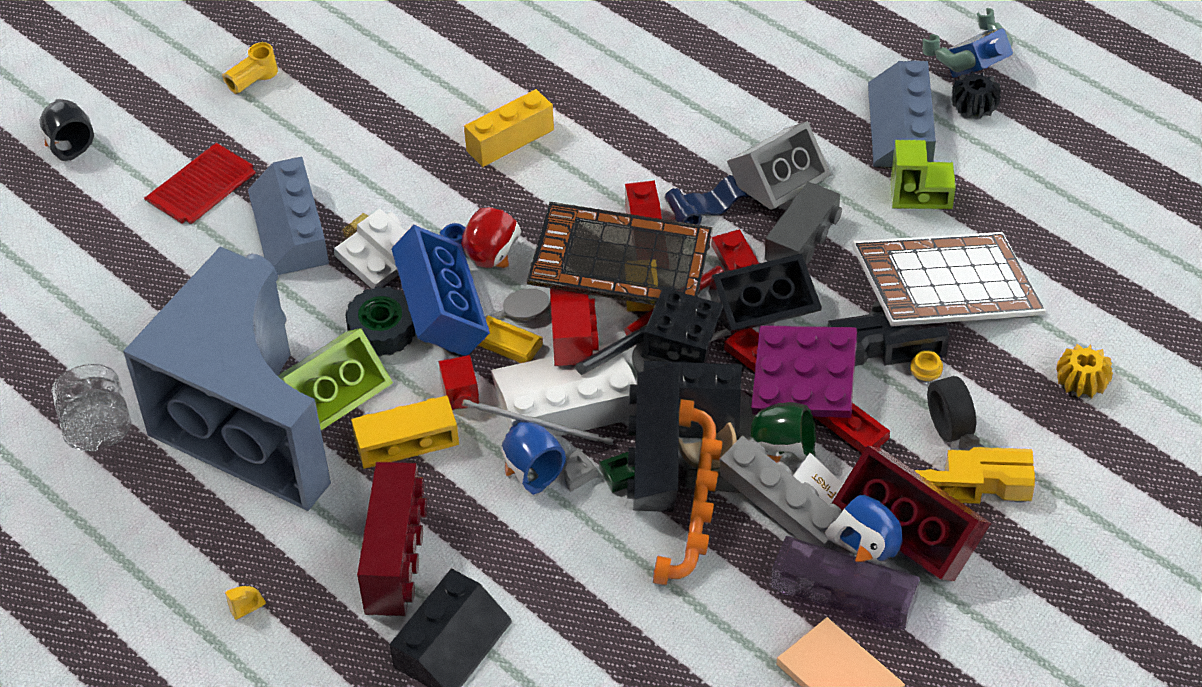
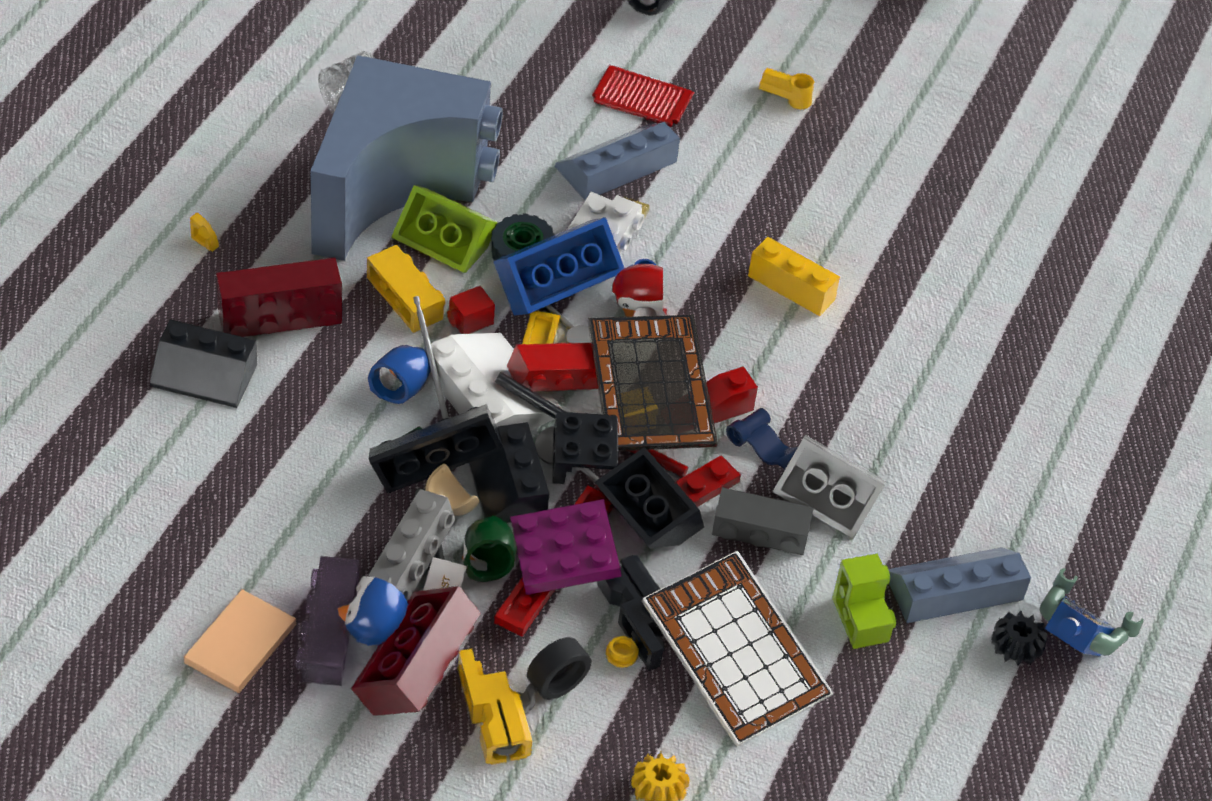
camera: 65 degrees right, 0 degrees up
(579, 470) = (409, 416): light grey tile -> none
(701, 509) = (376, 499): orange bar -> none

